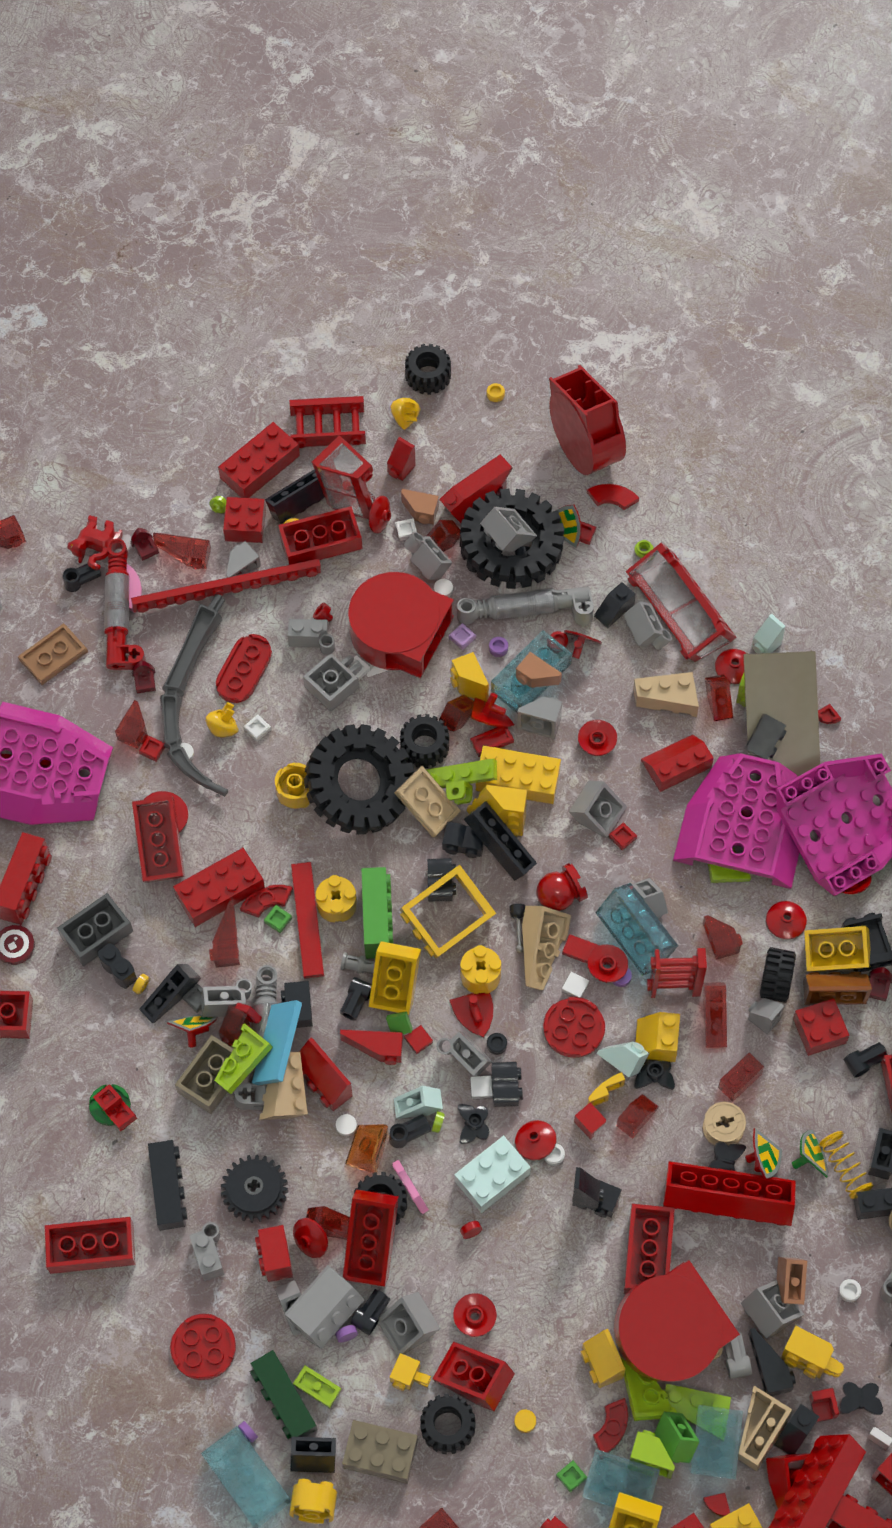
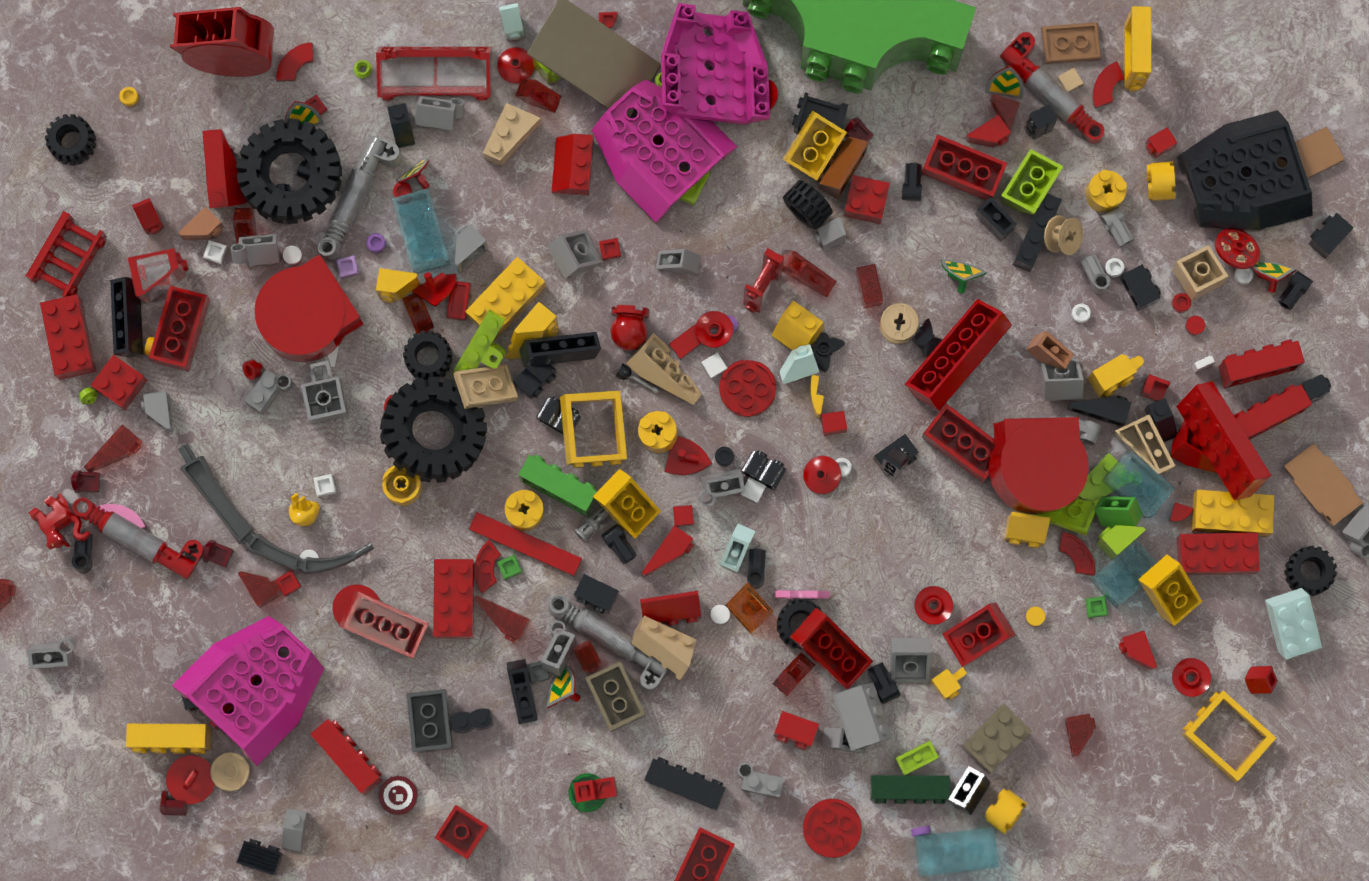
camera: 60 degrees left, 15 degrees up
(52, 654) = (143, 618): medium nougat tile -> none
(141, 984) = (499, 710): yellow tile -> none
(231, 584) = (179, 426): red plate -> none
(243, 668) = (261, 465): red tile -> none
(244, 1178) = (744, 715): black gear -> none
(245, 1056) = (624, 663): lime wing -> none
(253, 1016) = (584, 637): red tile -> none
(280, 1034) = (628, 629): medium azure tile -> none
(310, 1238) = (798, 695): red dish -> none
(346, 1333) = (889, 711): medium lavender tile -> none
(379, 514) = (192, 266): red dish -> none
(399, 1023) = (663, 523): bright green tile -> none
(405, 411) = (100, 184): yellow piece -> none
(439, 1117) = (762, 541): lime tile -> none
(442, 1405) = (1017, 663): black tyre -> none
(470, 1229) = (864, 567): red tile -> none
(474, 1123) = (778, 513): black animal -> none
(492, 1174) = (831, 524): light aqua brick -> none
(507, 529) = (286, 170): light grey slope -> none
(537, 673) = (431, 228): nougat slope -> none
(597, 730) = (510, 206): red dish -> none
(635, 927) = (701, 289): clear light blue brick -> none
(636, 1115) = (850, 384): clear red slope -> none
(722, 937) = (746, 227): clear red slope -> none
(765, 737) = (603, 83): black brick -> none
(766, 1155) = (944, 308): shield -> none
(786, 928) = (758, 176): red dish -> none
(834, 1137) = (961, 249): yellow piece -> none
(861, 1398) = (1166, 358): black animal -> none

